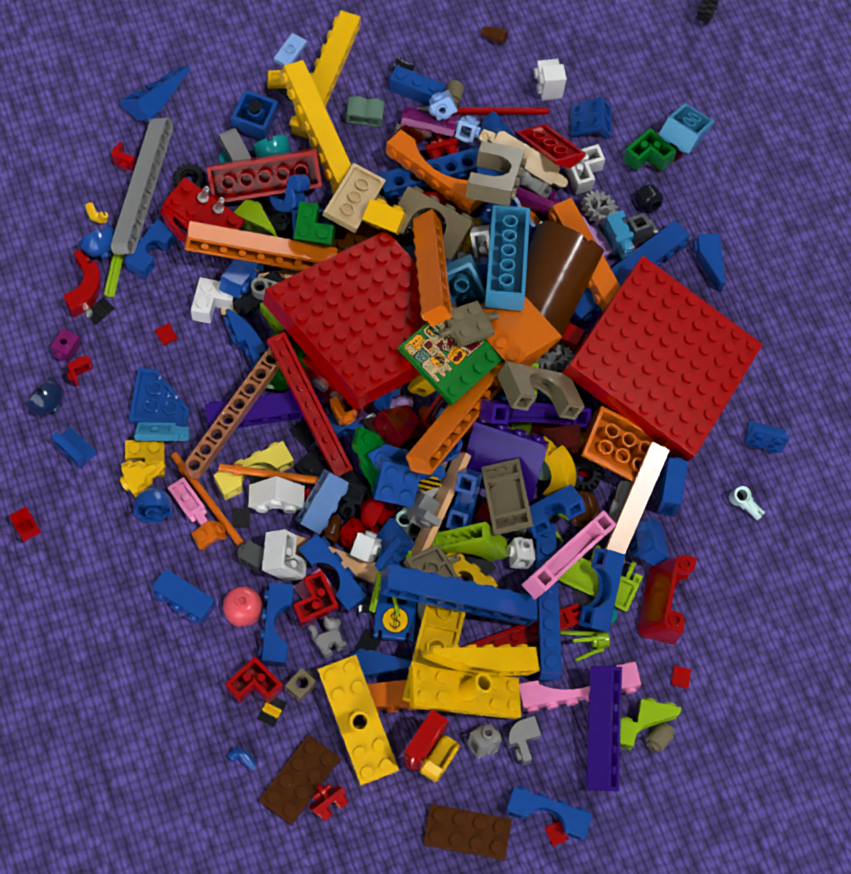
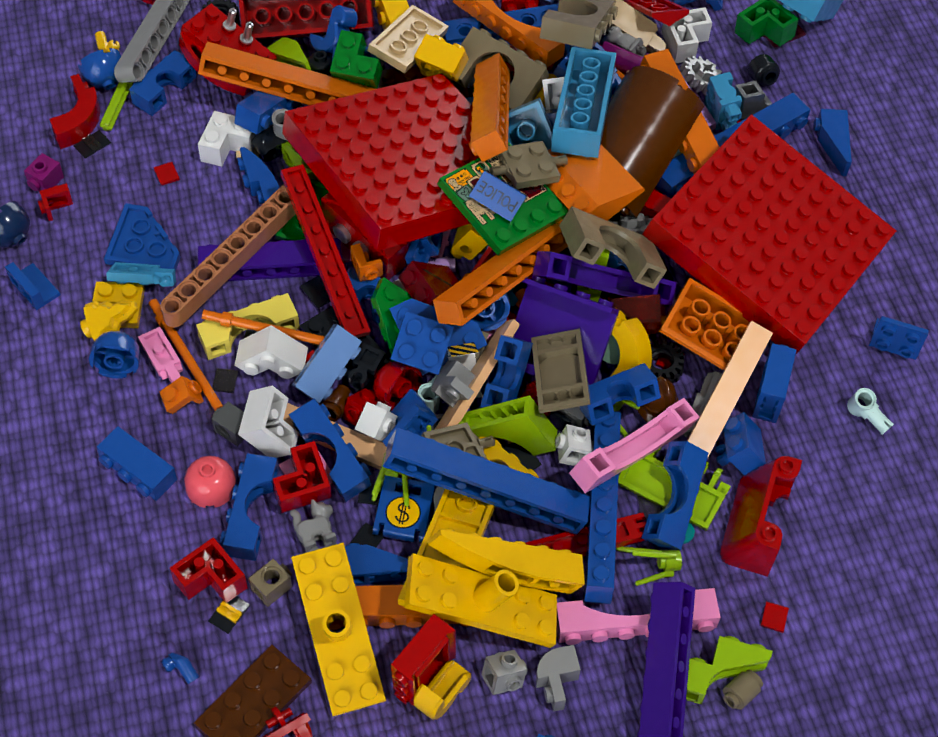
camera: 10 degrees right, 10 degrees down
(447, 356) = (498, 195): none -> blue panel

